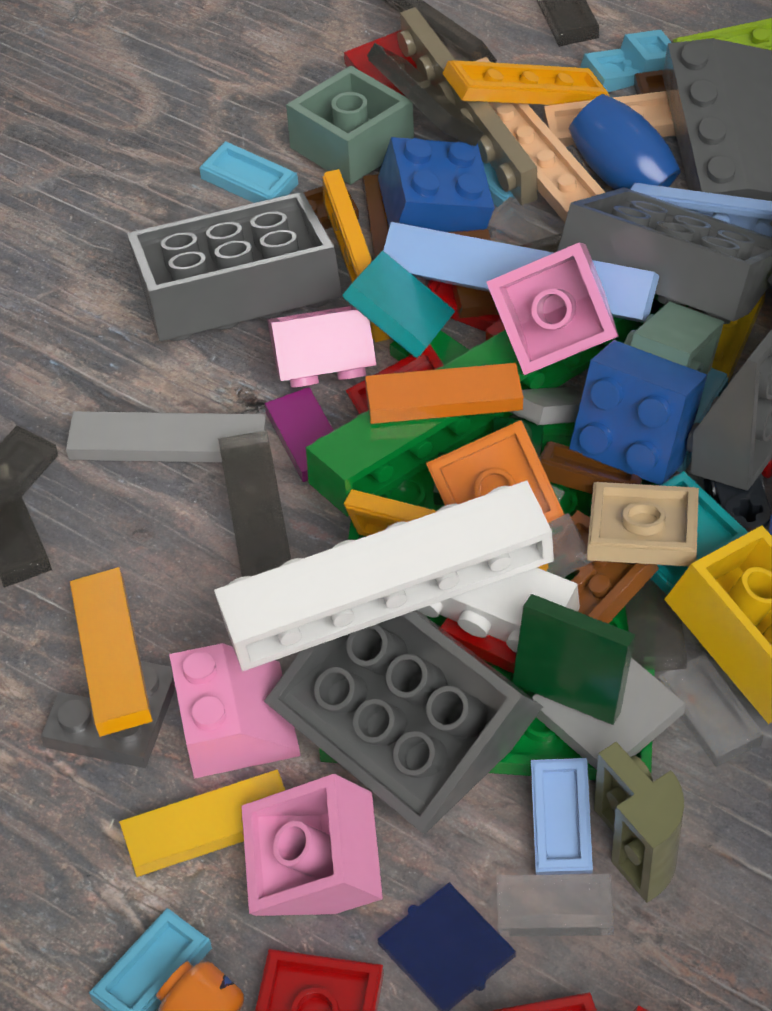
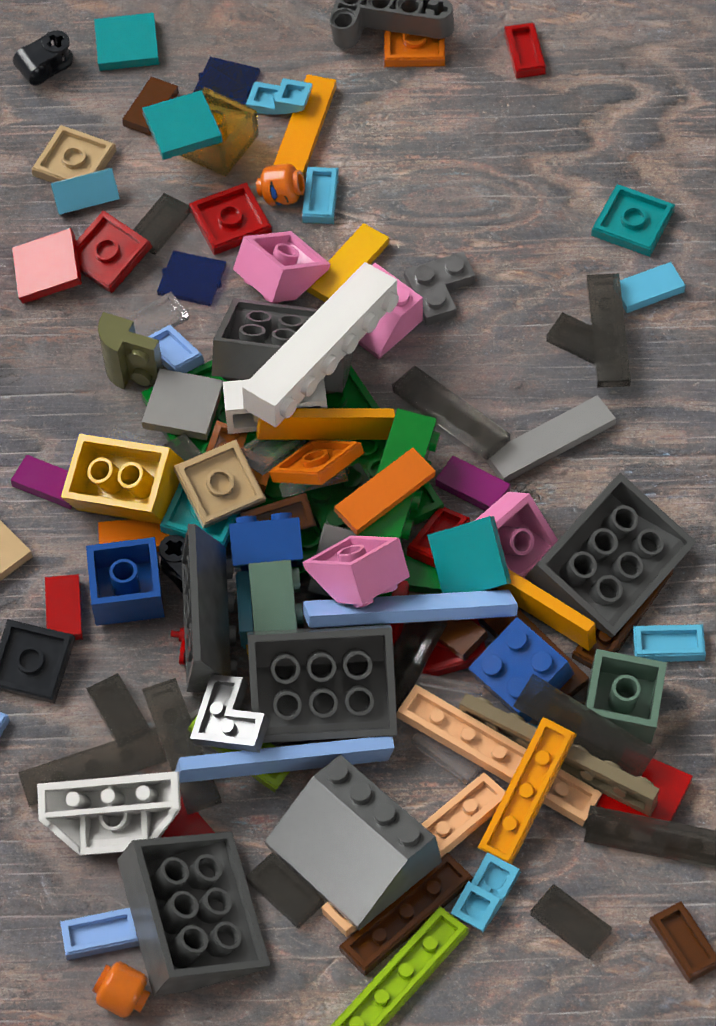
camera: 145 degrees right, 5 degrees up
(110, 652) = (464, 299): light orange tile -> none
(573, 659) = (200, 376): dark green tile -> none
(622, 145) = (422, 775): blue piece -> none

